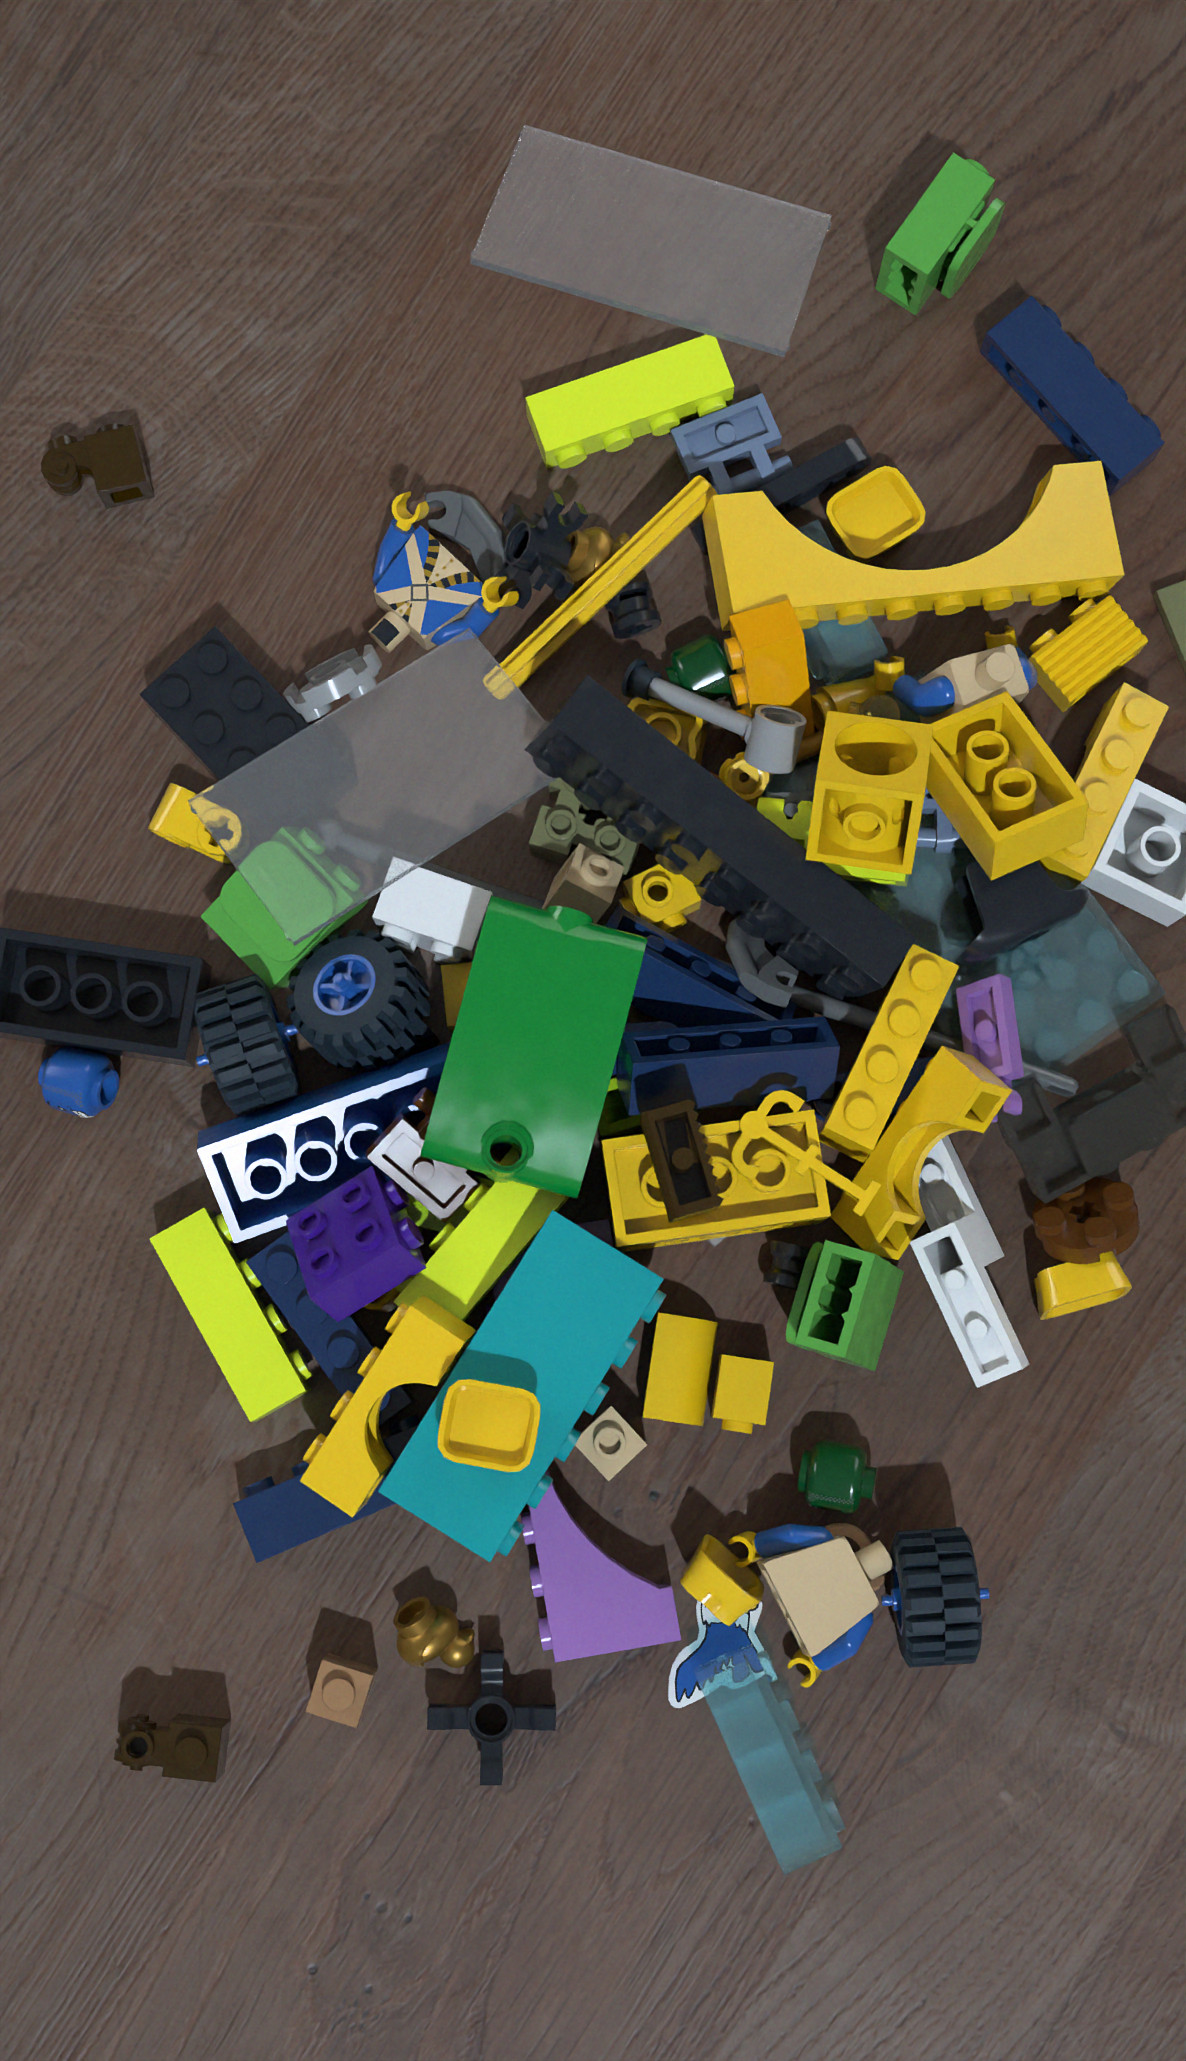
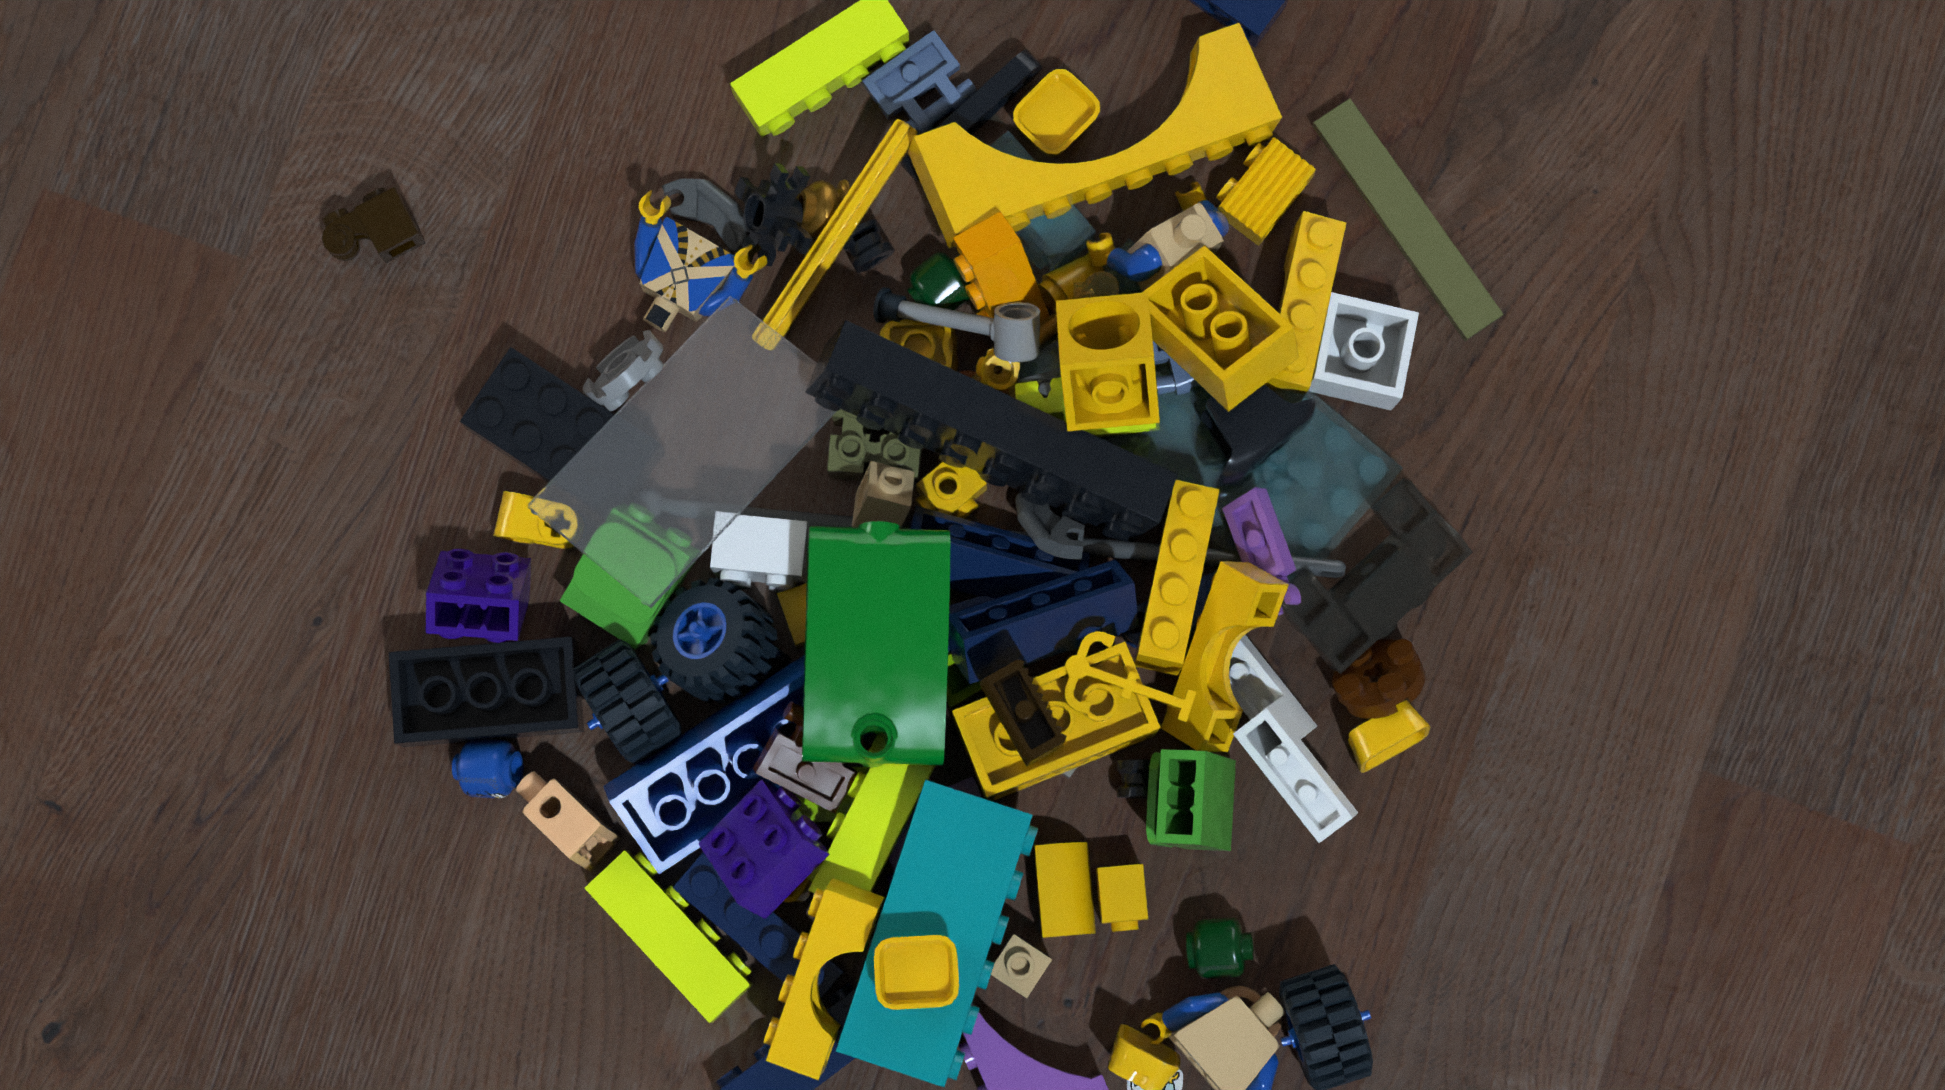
camera: 15 degrees left, 0 degrees up
(112, 889) = (478, 595): none -> dark purple brick
(149, 1160) = (574, 829): none -> light nougat torso

